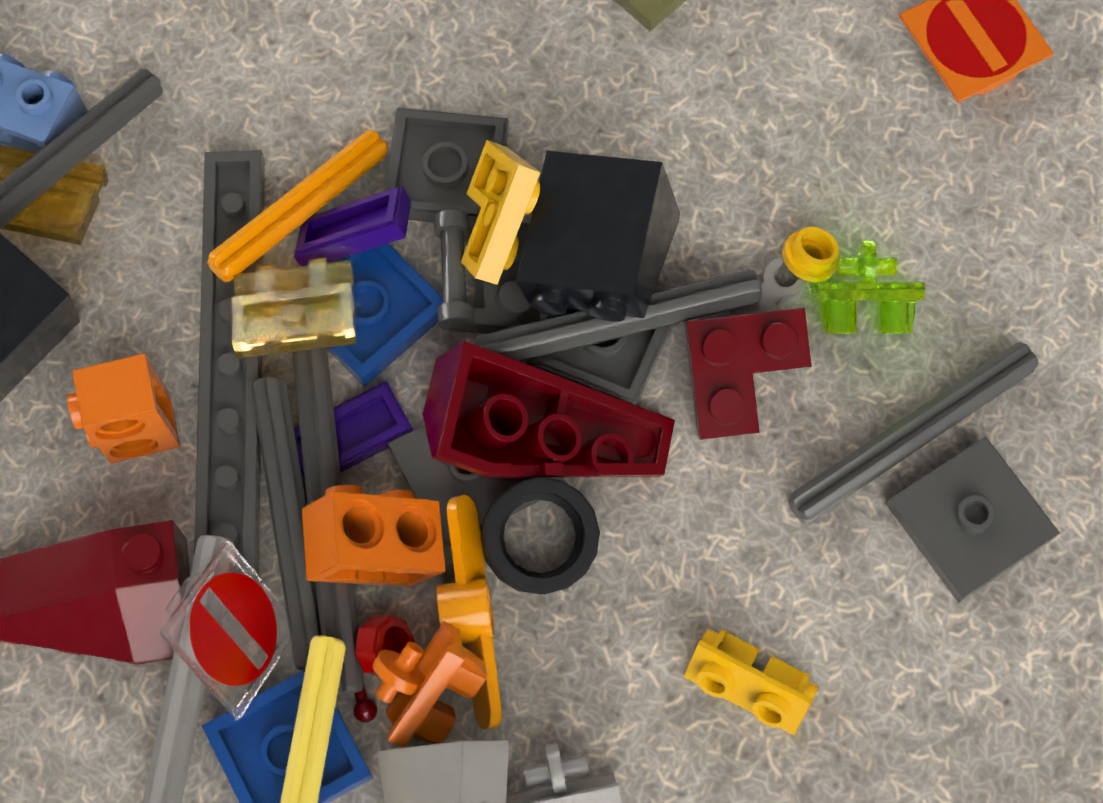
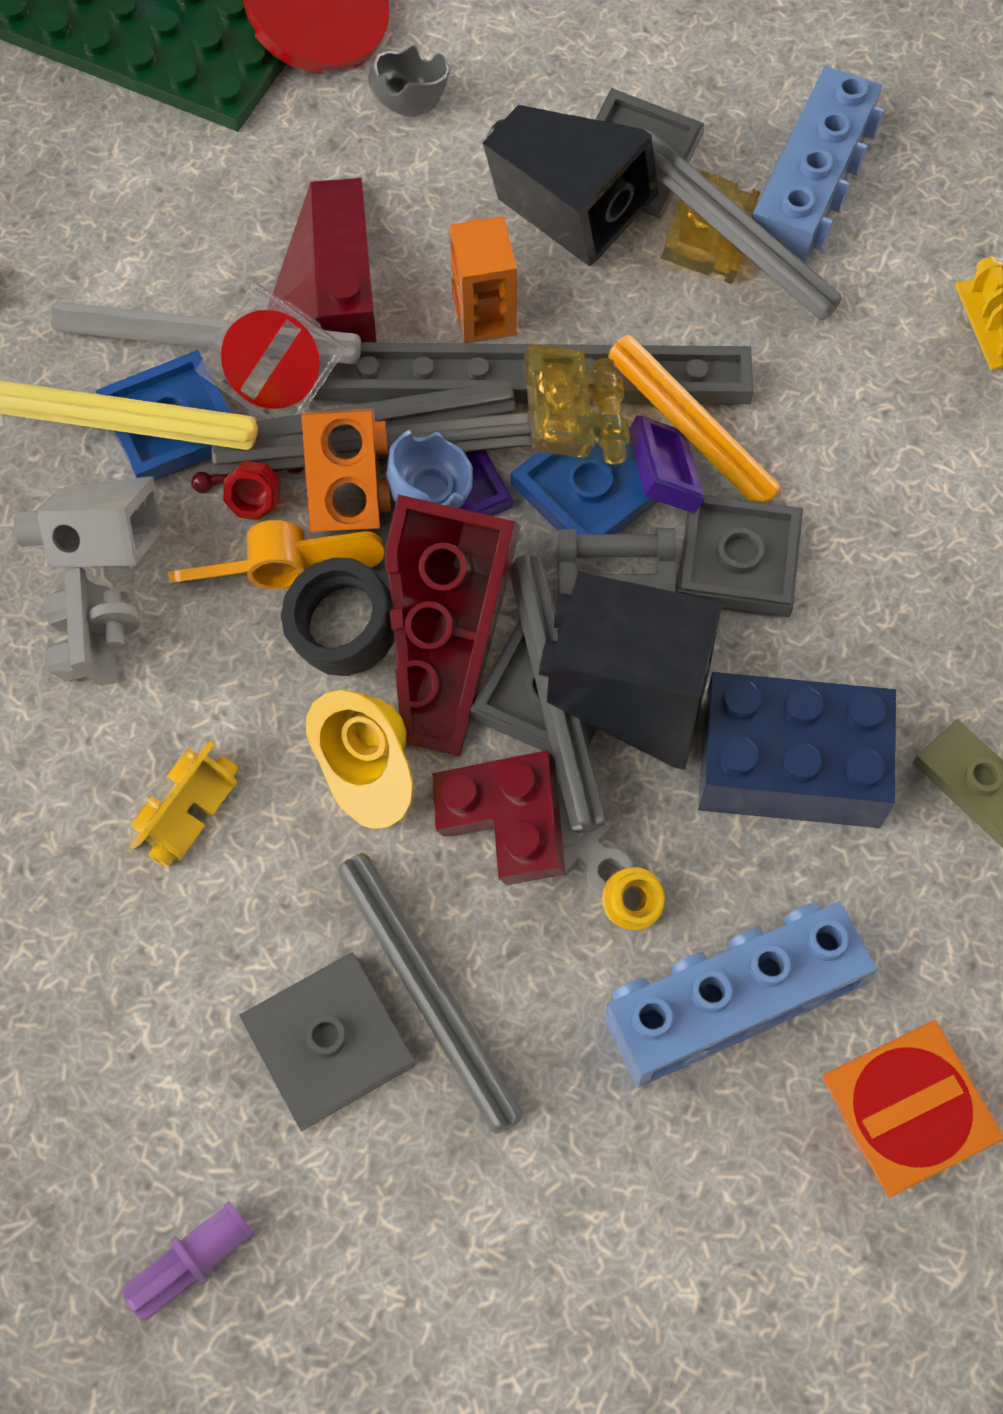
camera: 90 degrees right, 5 degrees down
(377, 451) = (429, 470): none -> medium blue hair
(418, 678) = (202, 517): orange hips -> none
(505, 191) = (672, 569): yellow plate -> none
(664, 103) = (798, 750): none -> dark blue brick
(694, 499) = (362, 756): none -> yellow piece
(893, 167) = (737, 992): none -> medium blue brick
(894, 299) = (592, 949): clear neon green hips -> none

